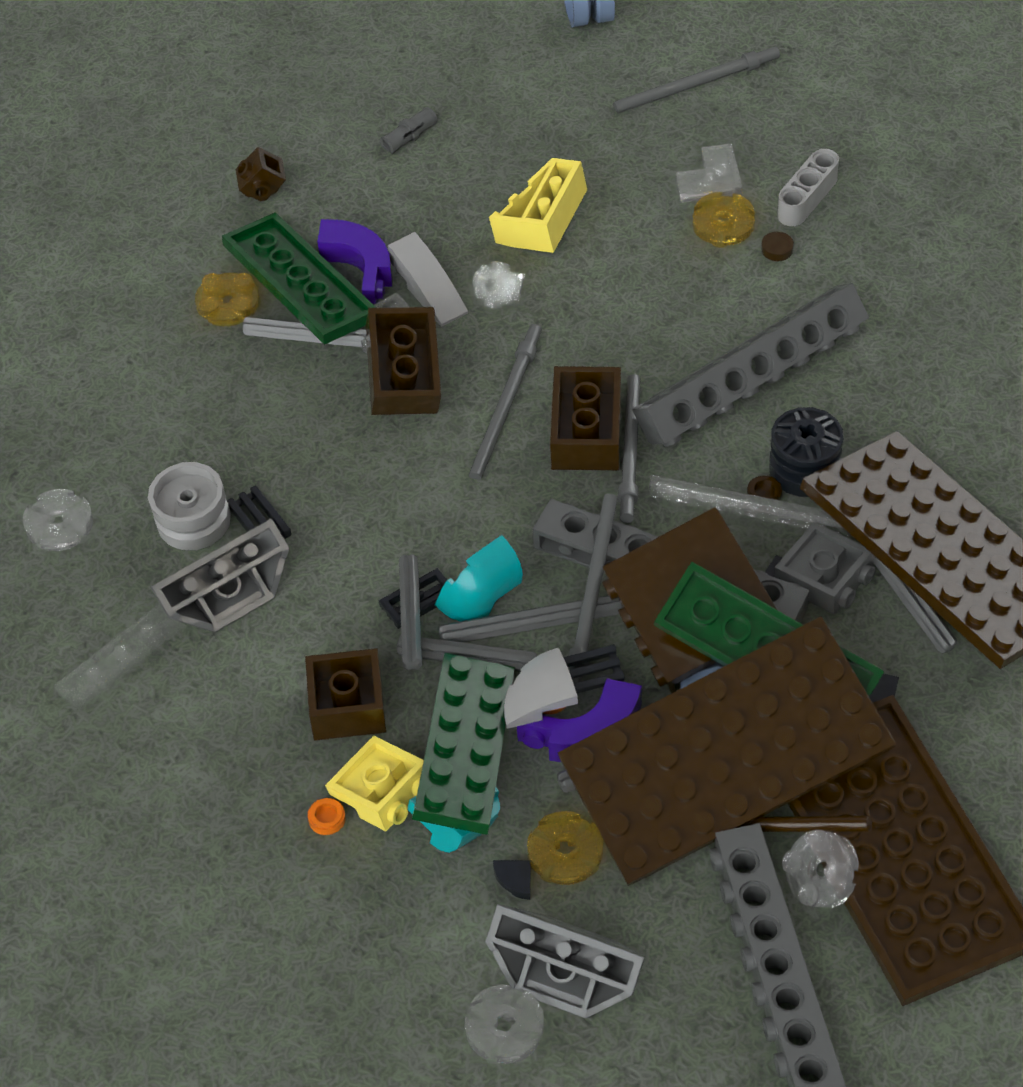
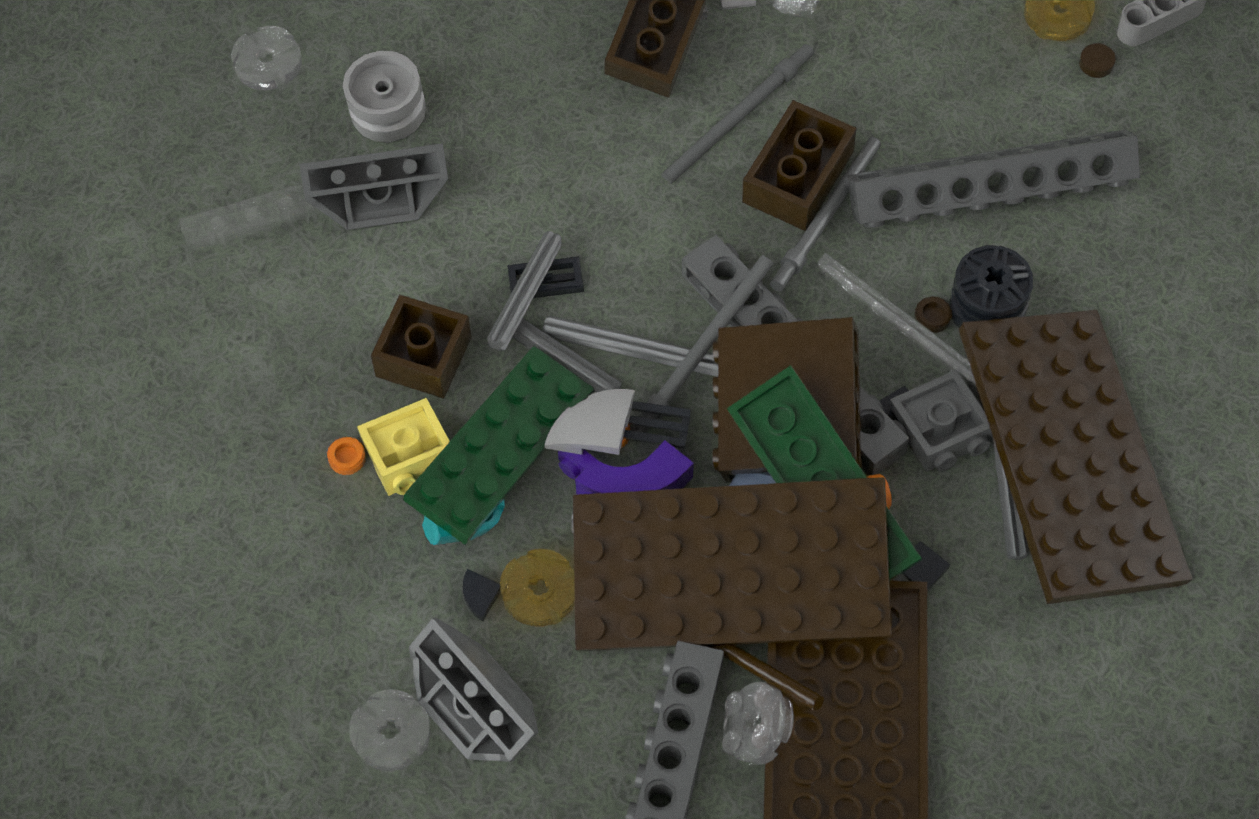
camera: 25 degrees right, 10 degrees up
(246, 499) = (443, 109): black tile -> none
(486, 579) = (603, 291): teal brick -> none

